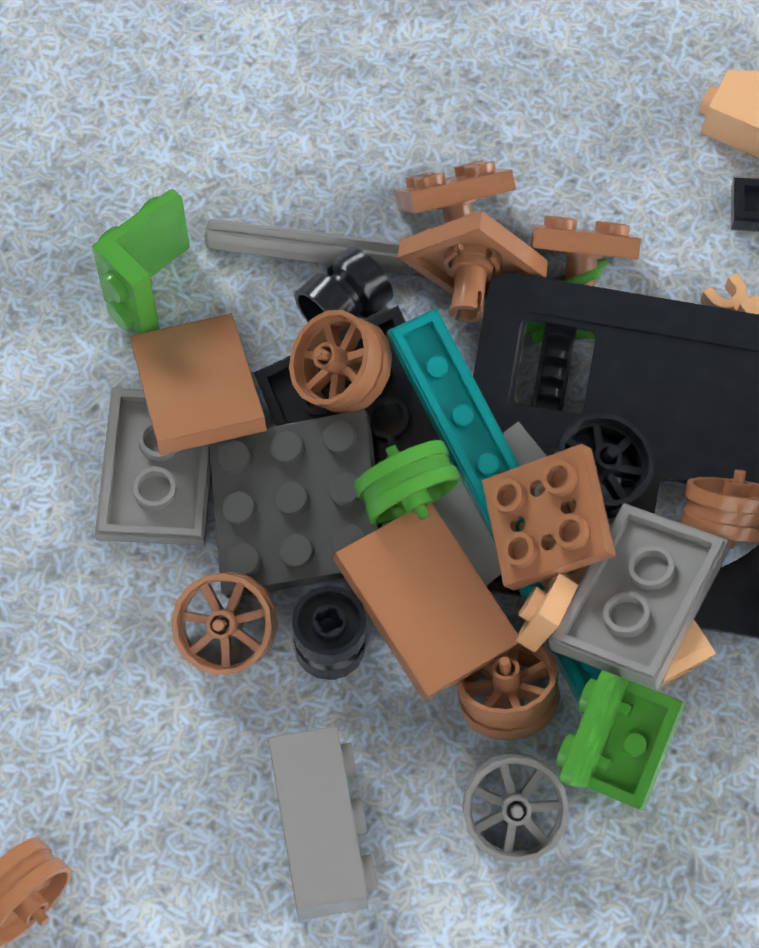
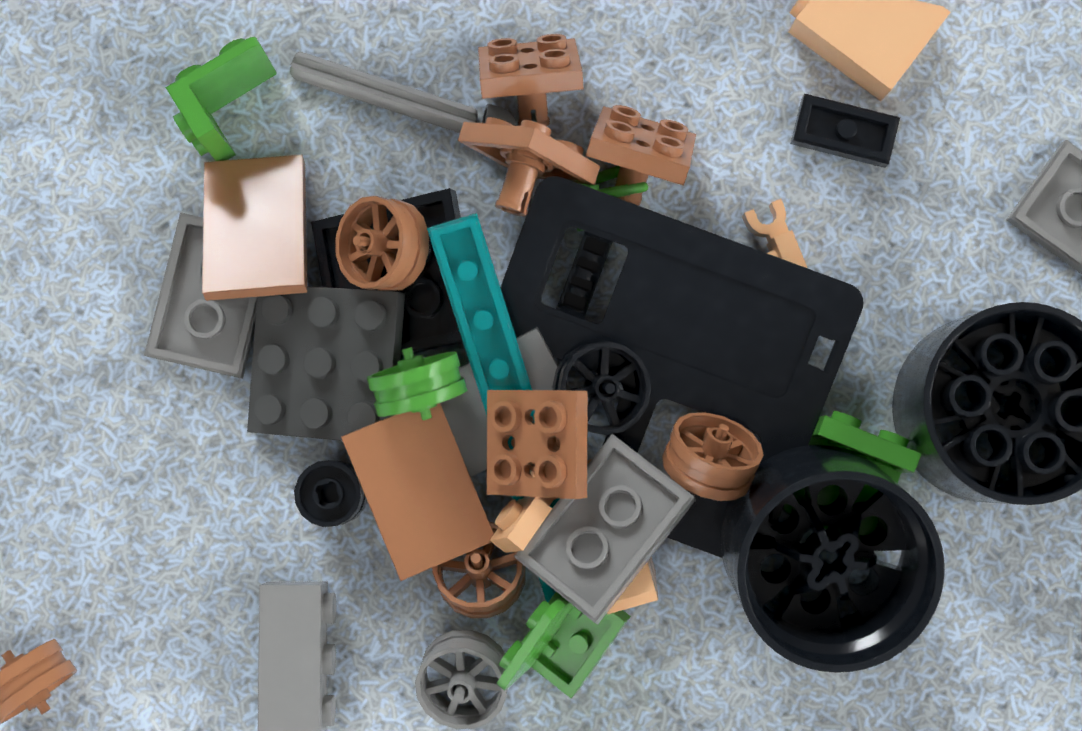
camera: 10 degrees right, 20 degrees up
(224, 623) = (242, 467): nougat wheel -> none
(352, 285) = (407, 158): black wheel -> none

